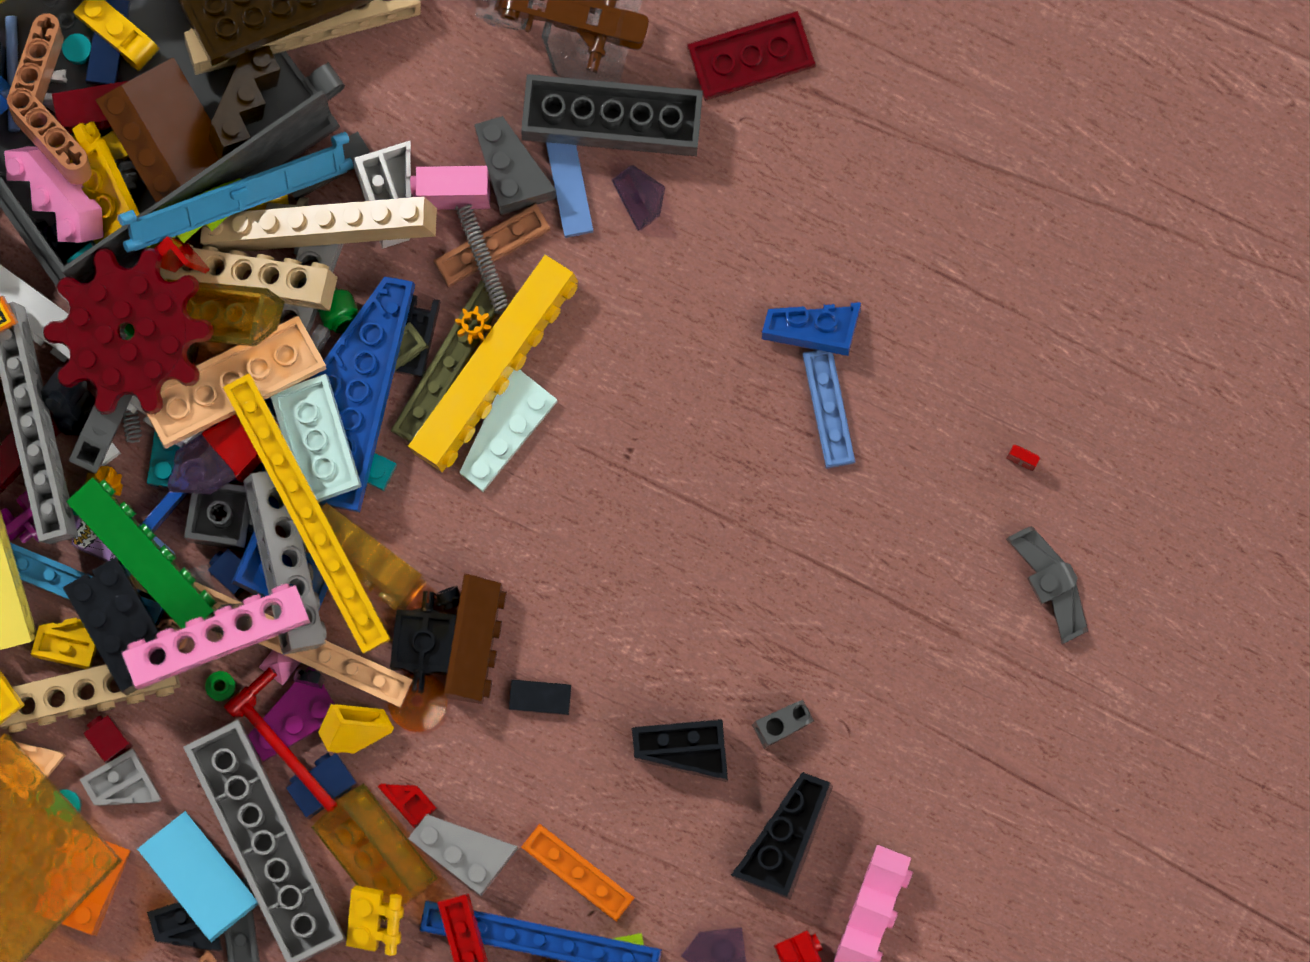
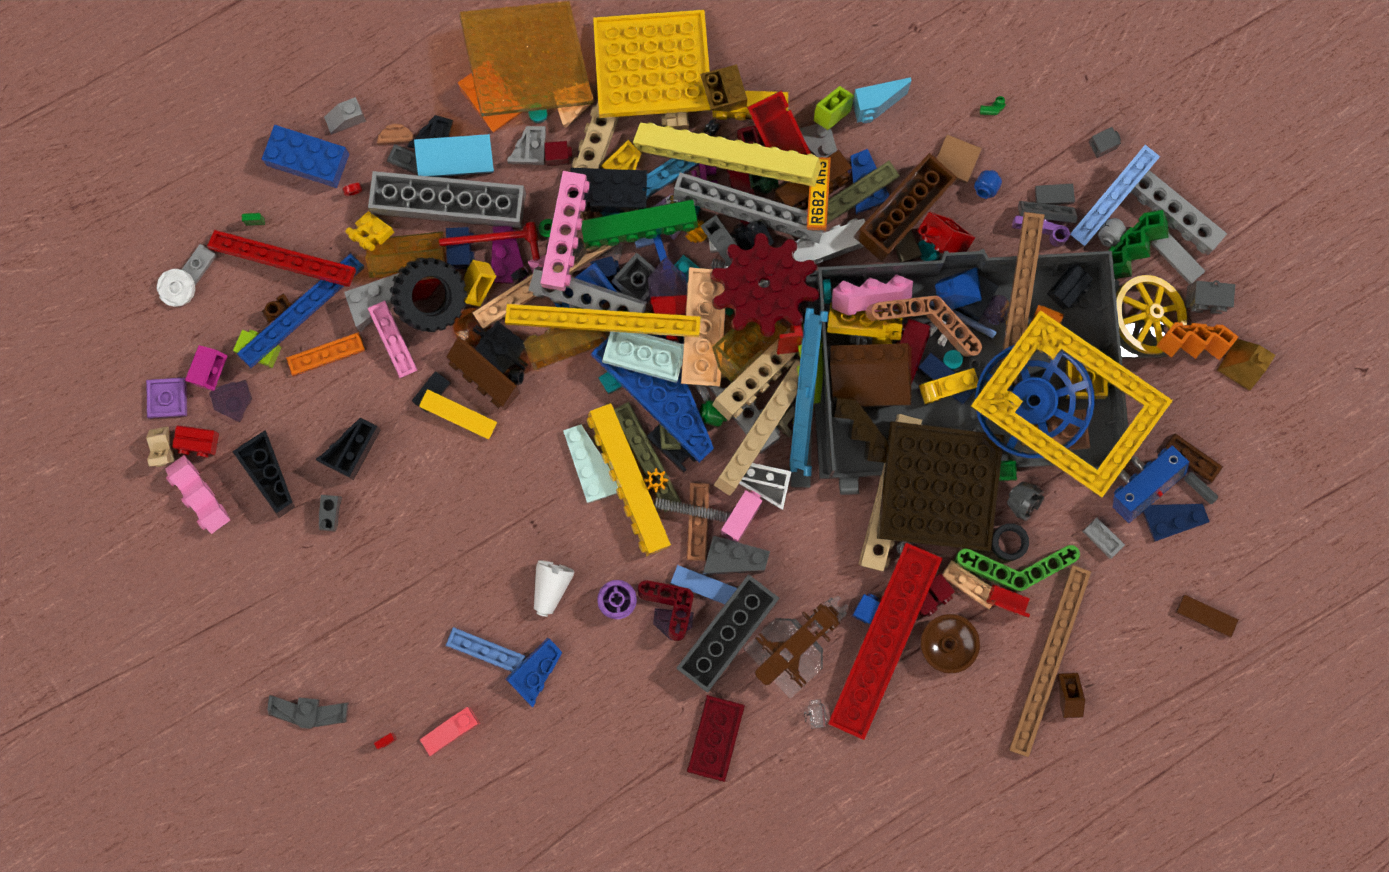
camera: 125 degrees right, 0 degrees up
(418, 741) = (452, 303): none -> black tyre
(502, 790) = (392, 339): none -> bright pink tile
(548, 640) = (458, 414): none -> yellow tile
(611, 209) = (674, 600): none -> dark red beam
(658, 277) = (617, 599): none -> medium lavender cone
(694, 374) = (550, 586): none -> white cone
(957, 385) = (450, 731): none -> coral slope

